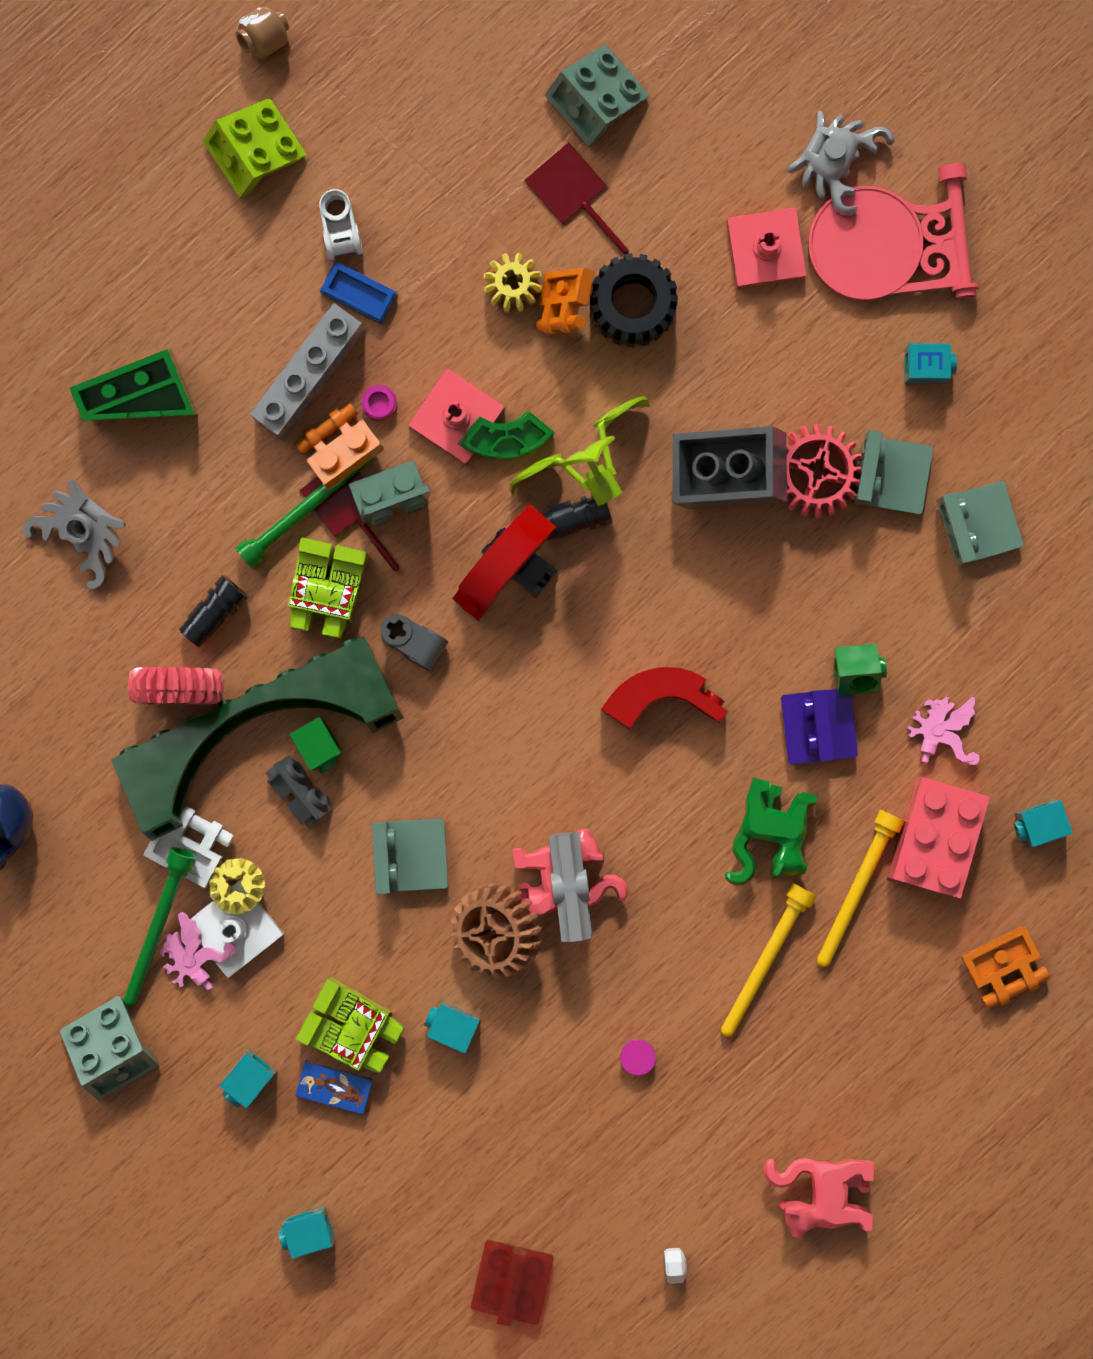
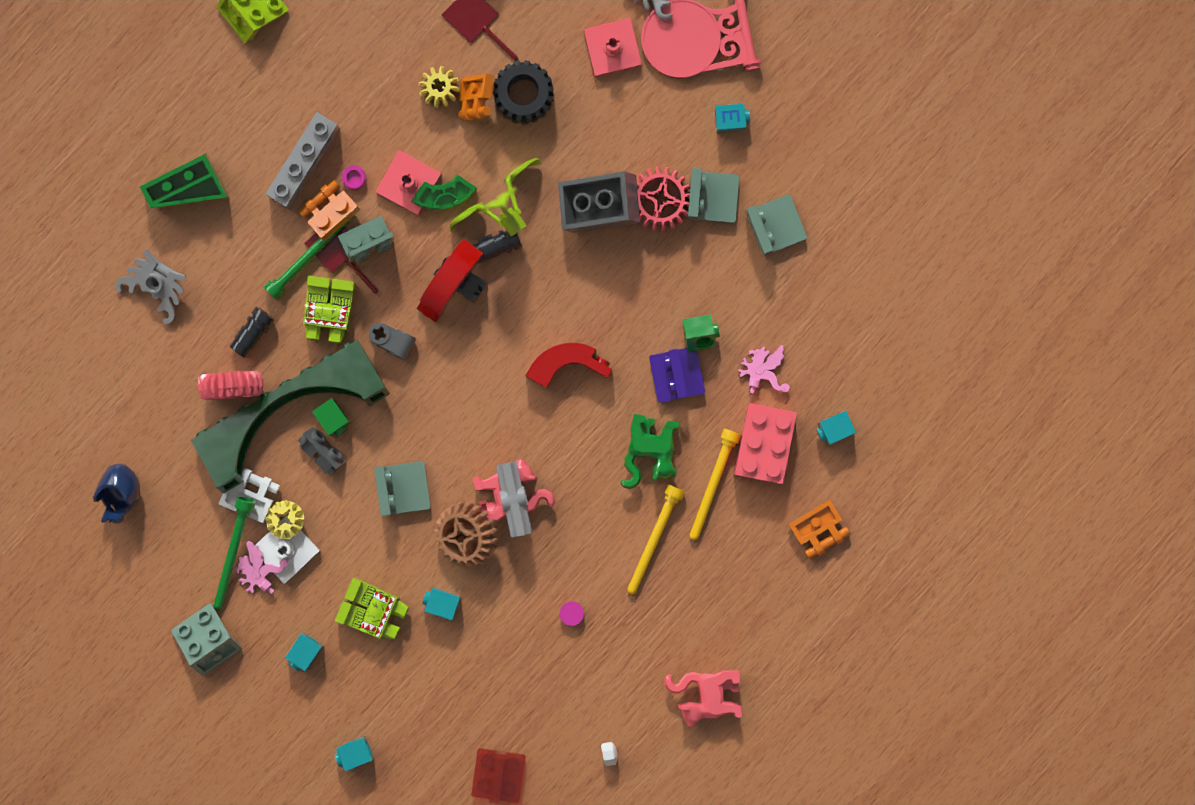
camera: 15 degrees left, 0 degrees up
(334, 1087) = (364, 652): tile -> none
(339, 231) = (316, 59): white piece -> none
(358, 292) = (333, 102): blue tile -> none

